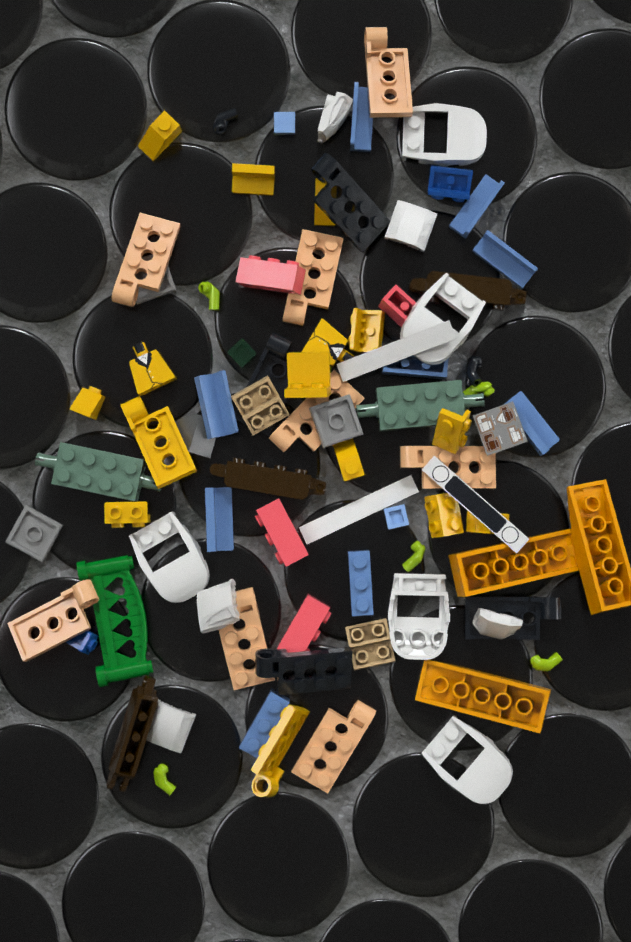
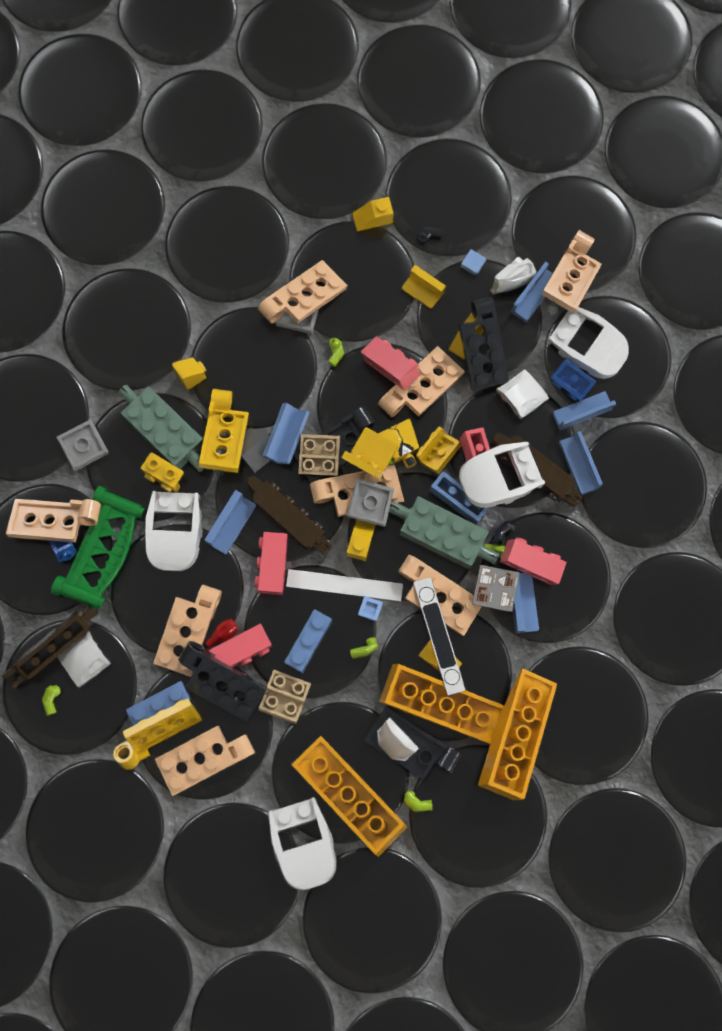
camera: 30 degrees right, 10 degrees down
(149, 370) = (252, 377): yellow torso -> none
(217, 607) = (184, 587): white slope -> none
(241, 353) = (331, 408): clear green plate -> none
(278, 623) = (223, 632): none -> red piece
(396, 351) = (451, 476): white sticker -> none
(419, 636) = (325, 713): white slope -> none
(443, 515) = (408, 630): yellow bracket -> none
(451, 430) = (456, 564): yellow bracket -> none
(518, 380) = (533, 561): none -> coral brick

